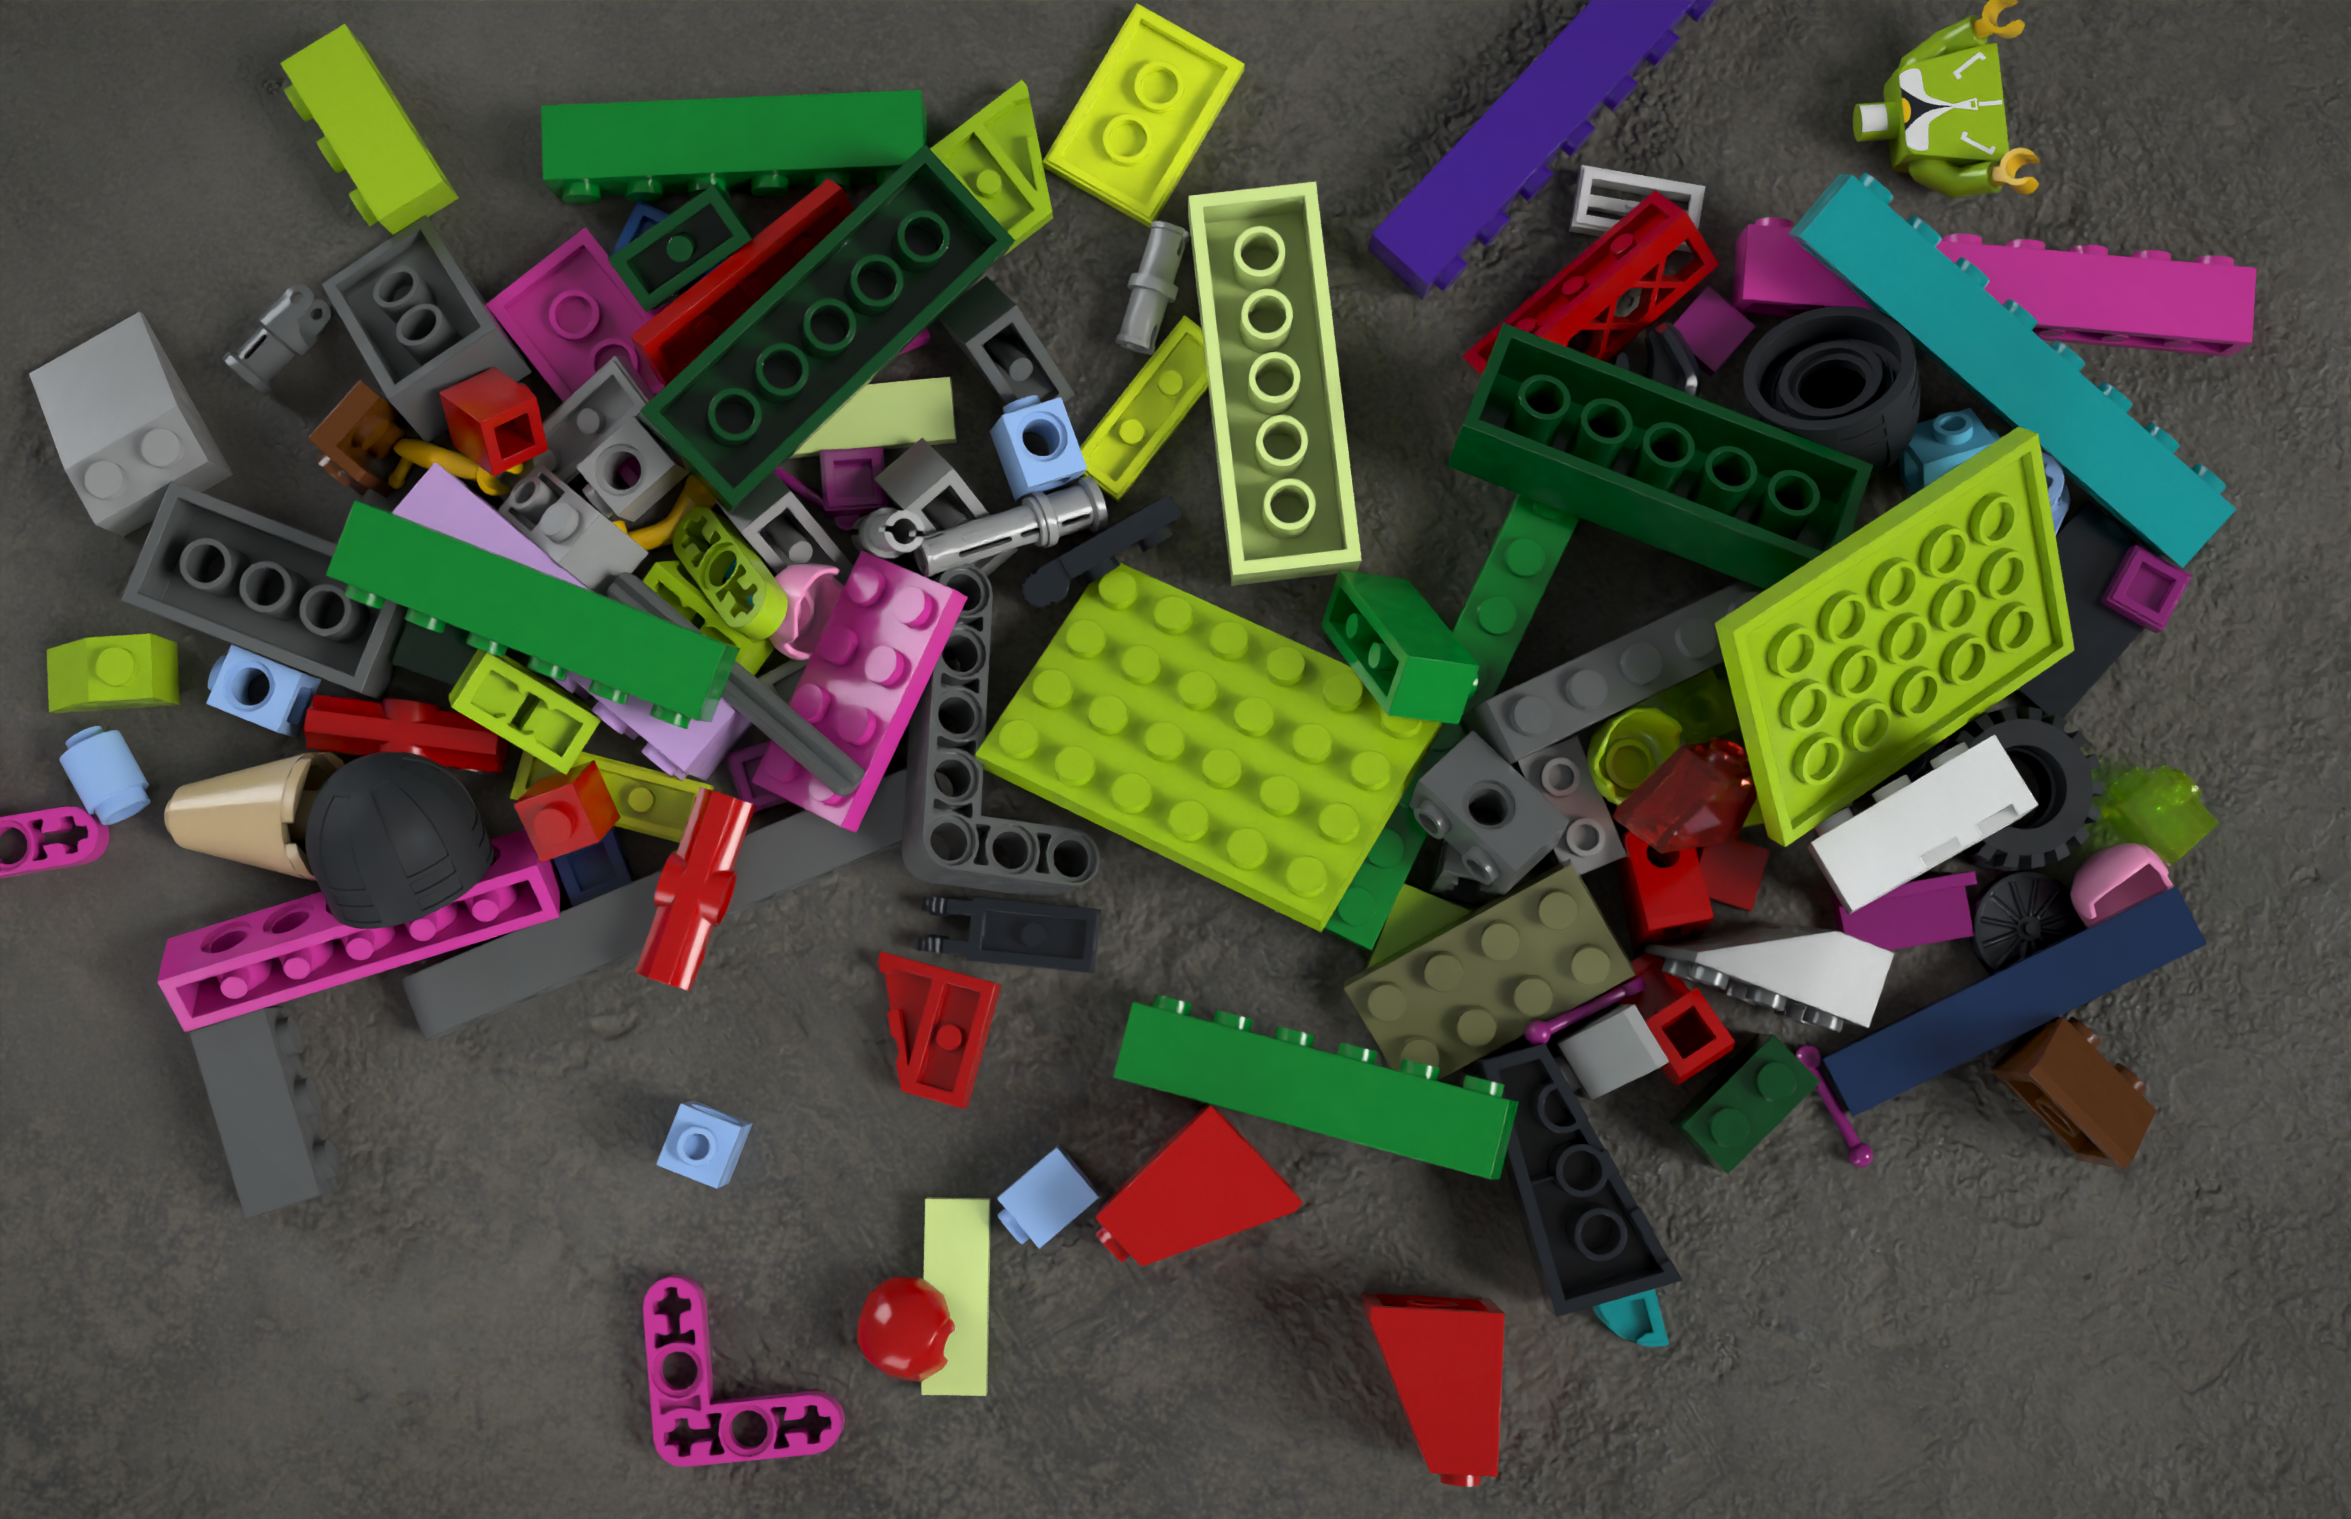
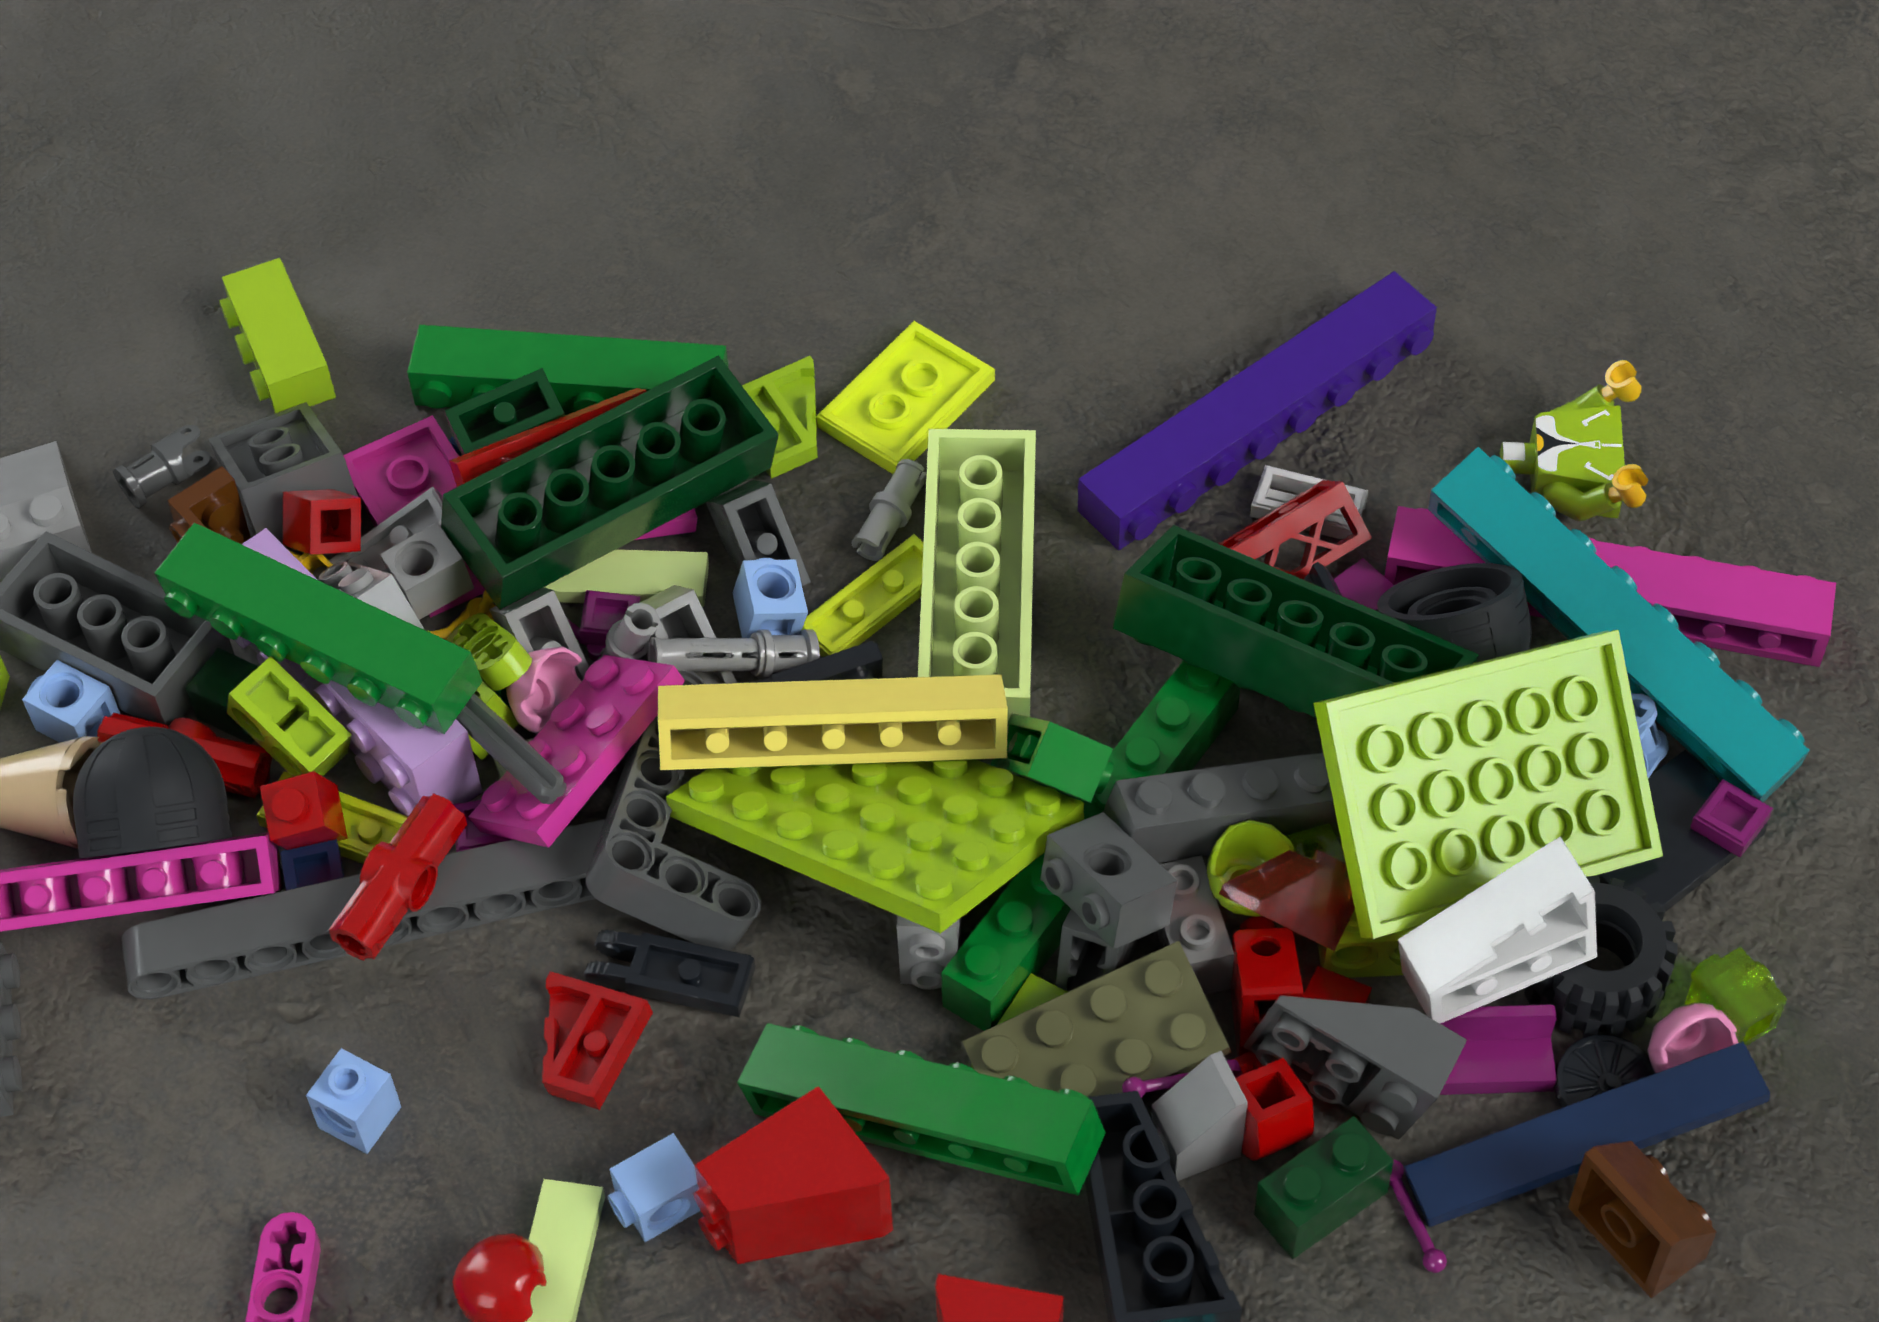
camera: 10 degrees right, 30 degrees down
(1148, 641) = (832, 722): none -> light yellow brick

